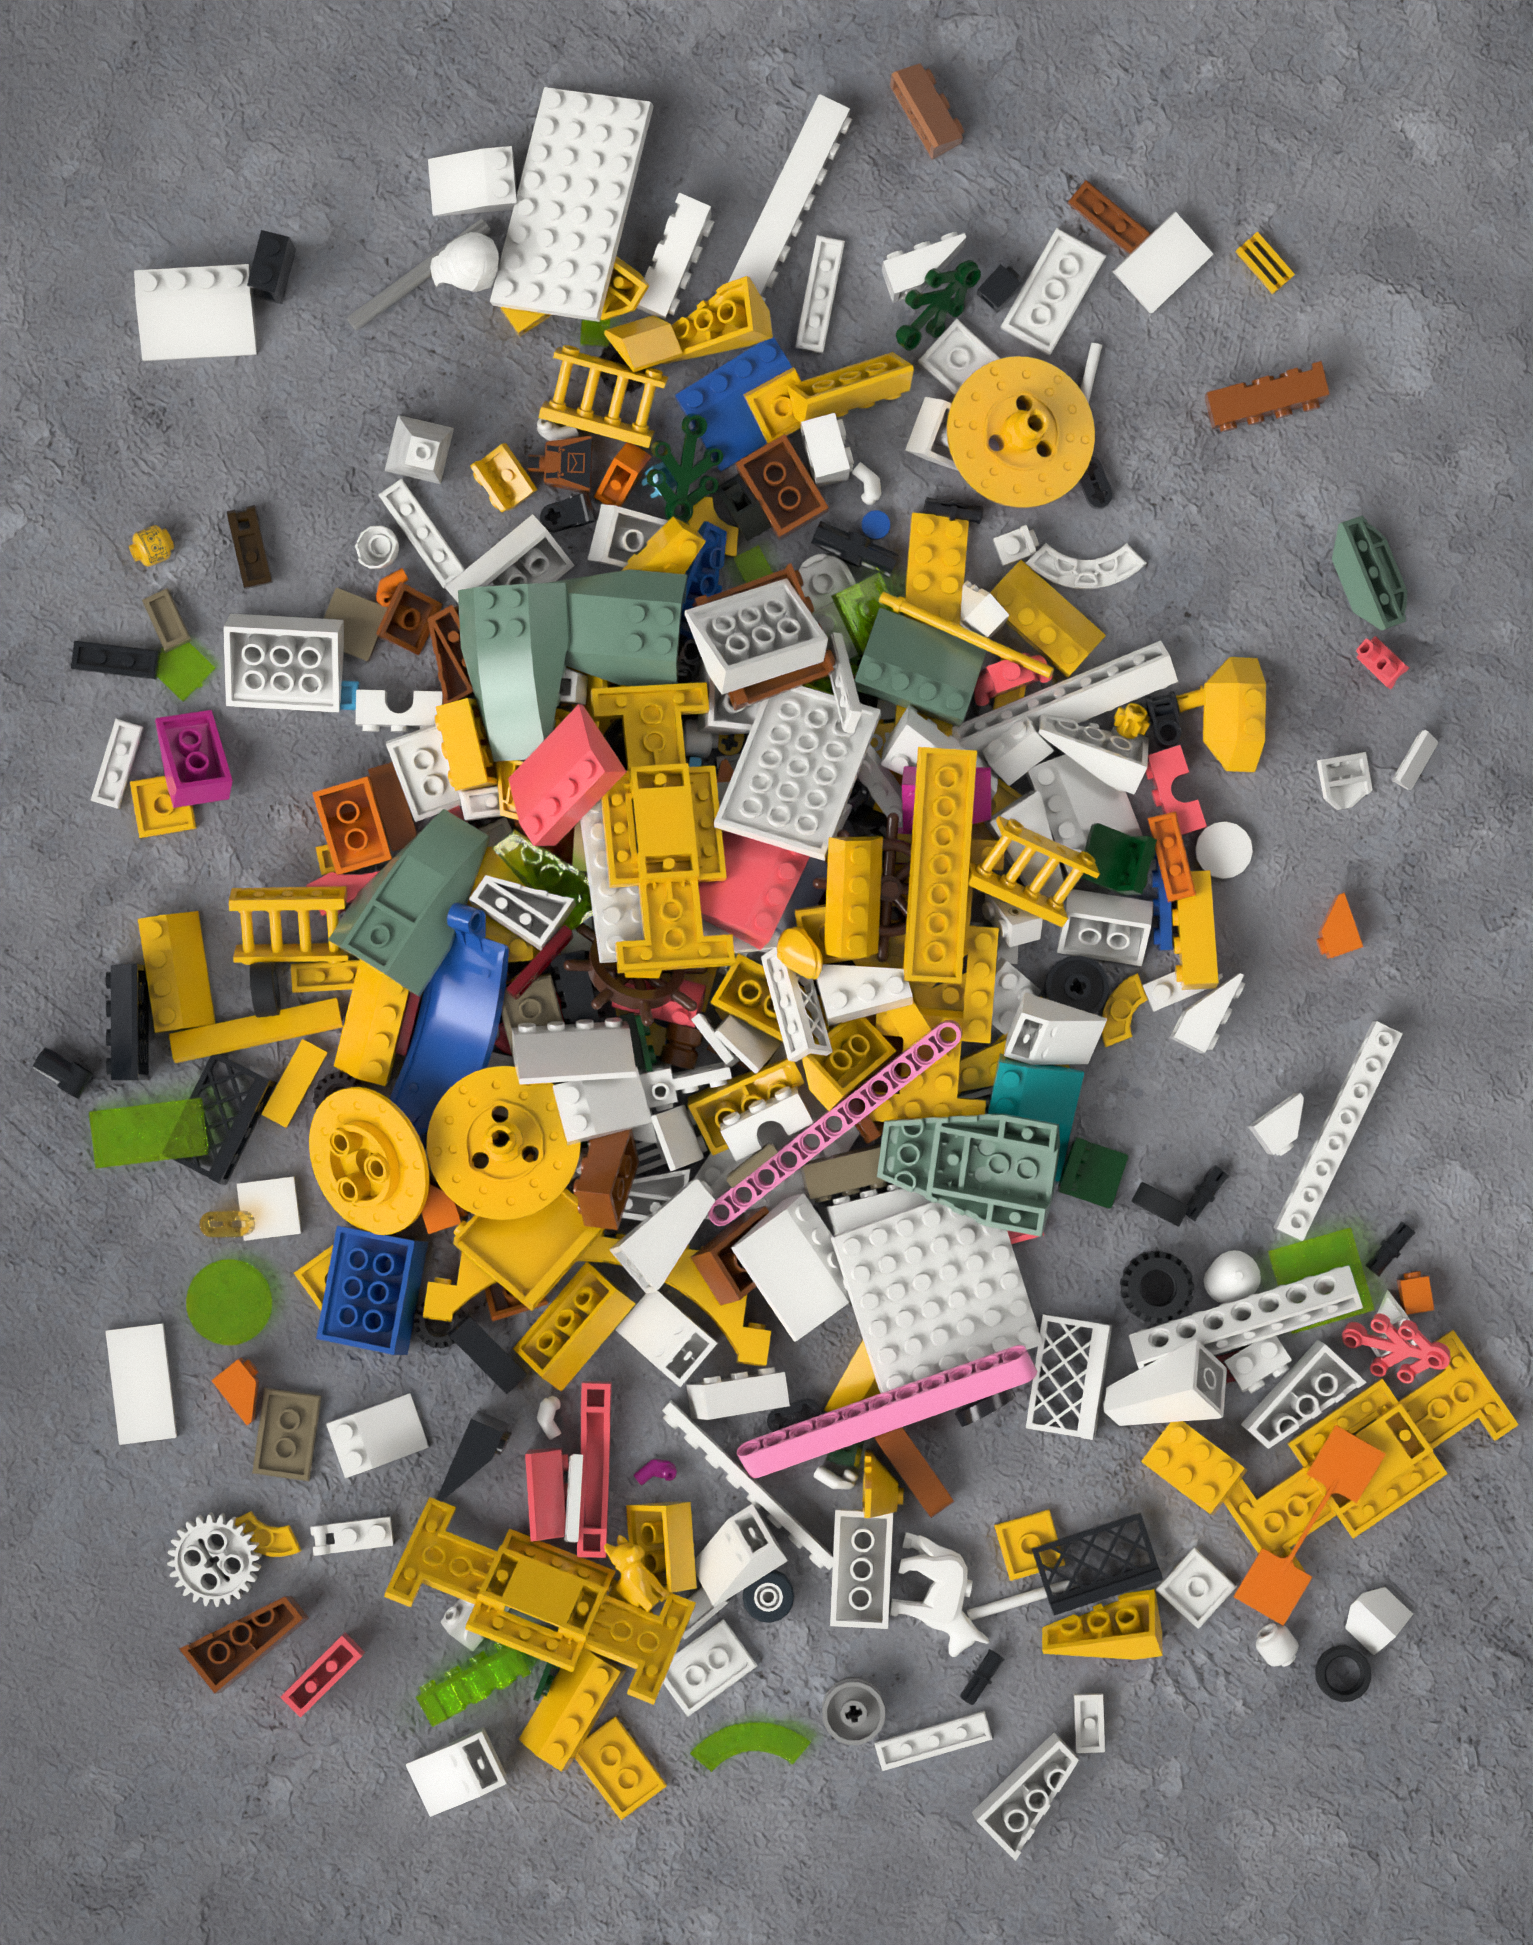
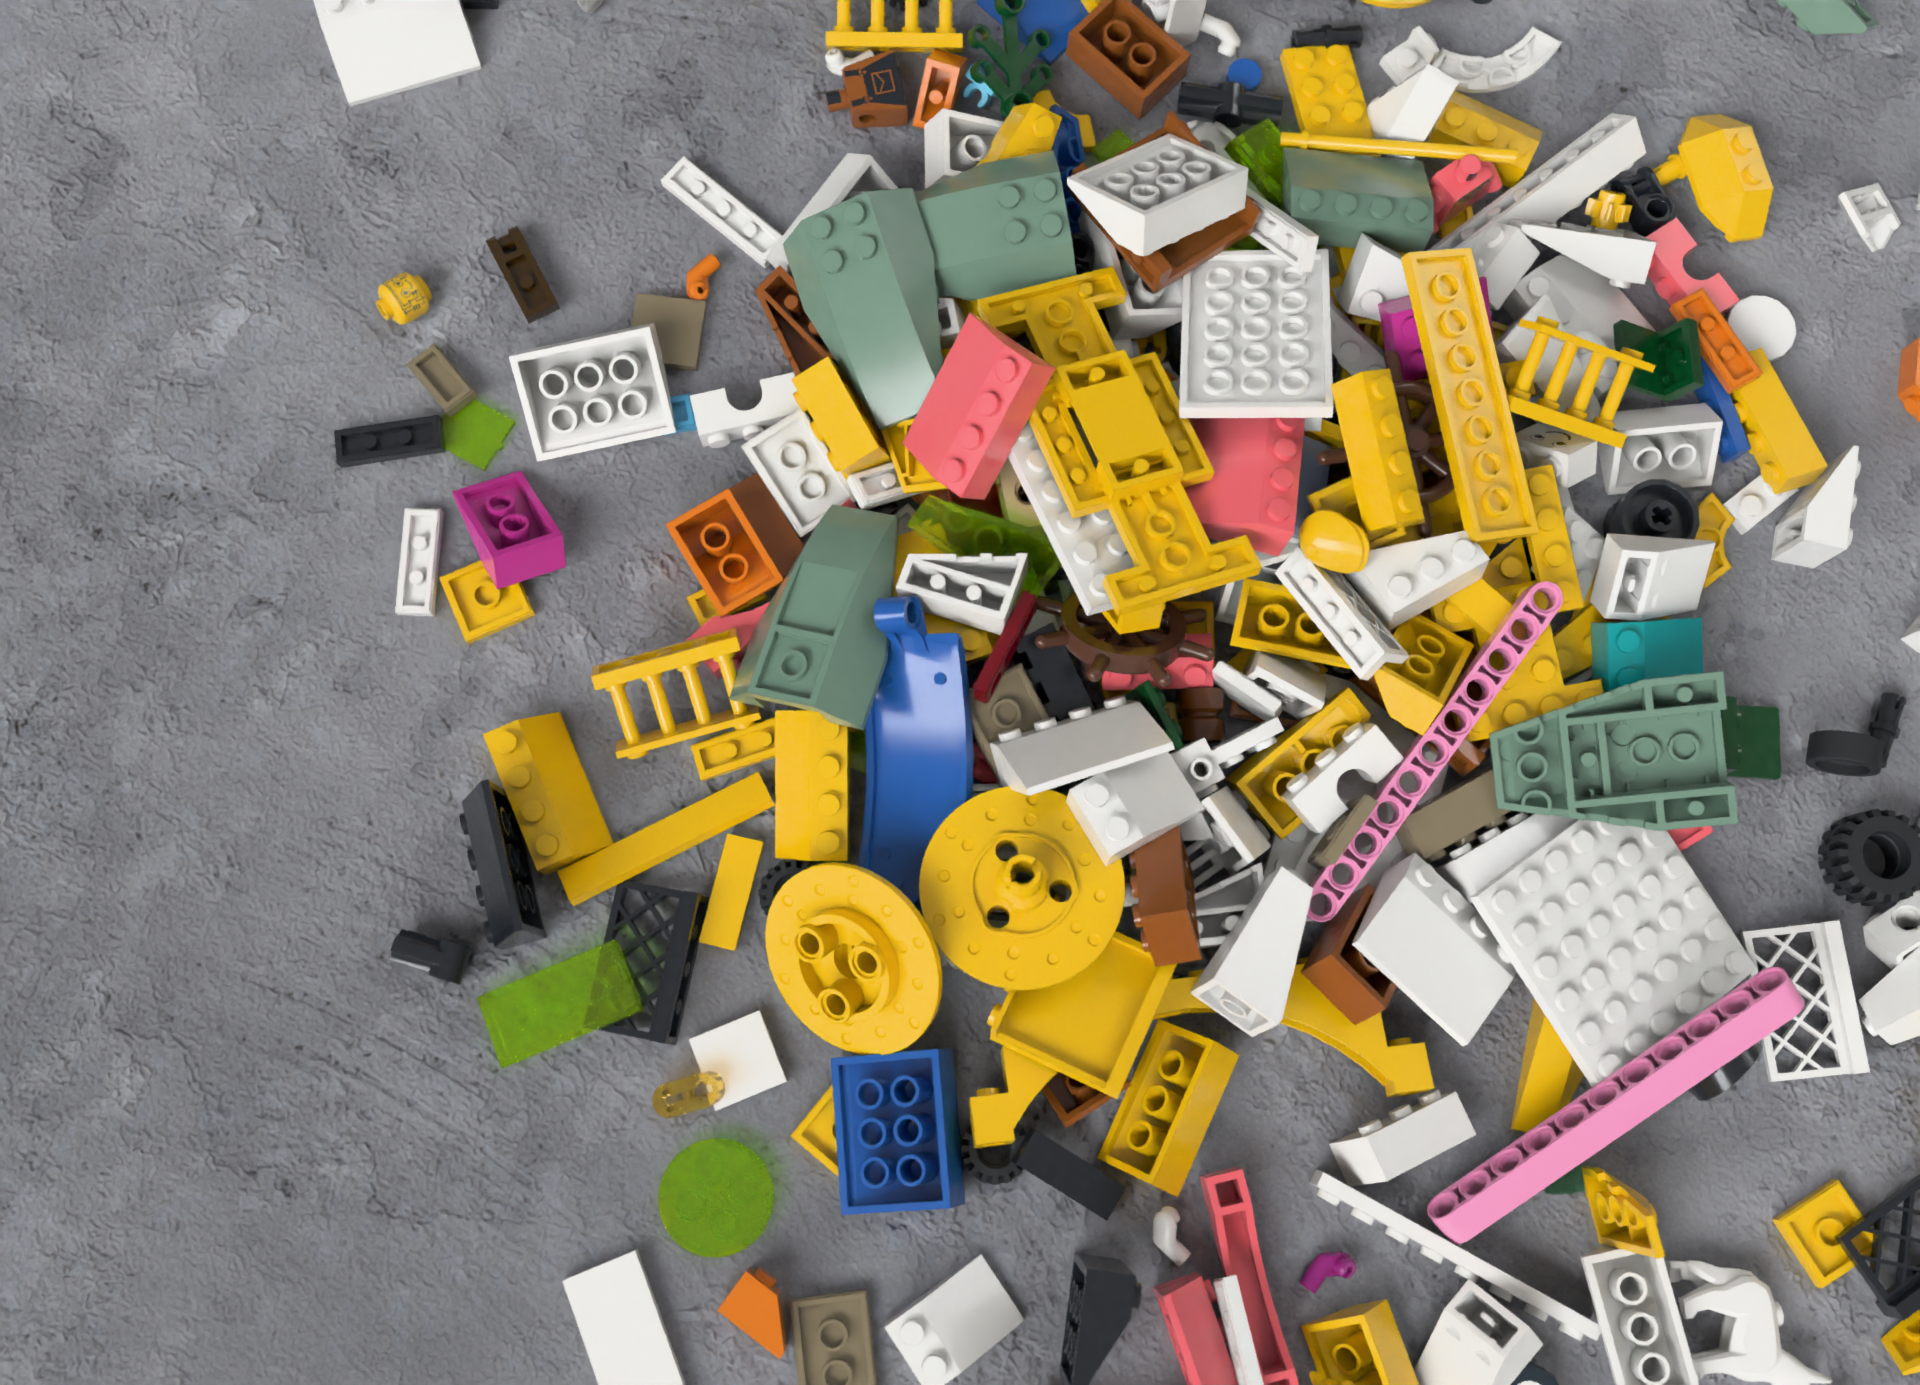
camera: 20 degrees left, 10 degrees down
(265, 989) = (665, 781): black tyre -> none
(377, 547) = (674, 234): white hair -> none
(406, 619) = (729, 305): dark orange slope -> none
(408, 1023) = (856, 783): dark red tile -> none
(419, 449) = (696, 111): white slope -> none
(440, 1210) = (963, 1000): orange slope -> none
(503, 478) = (804, 124): yellow bracket -> none
(573, 513) = (891, 143): black piece -> none
(666, 1336) = (1292, 1088): white slope -> none
(743, 507) = (1090, 90): pearl dark grey slope -> none
(790, 1410) = (1482, 1153): black beam -> none
(835, 1481) = (1557, 1218): white arm -> none
(915, 1471) = (1662, 1177): dark orange beam -> none
(1017, 1600) = (1837, 1312): white bar -> none
(1381, 661) = (1866, 76): coral hips -> none

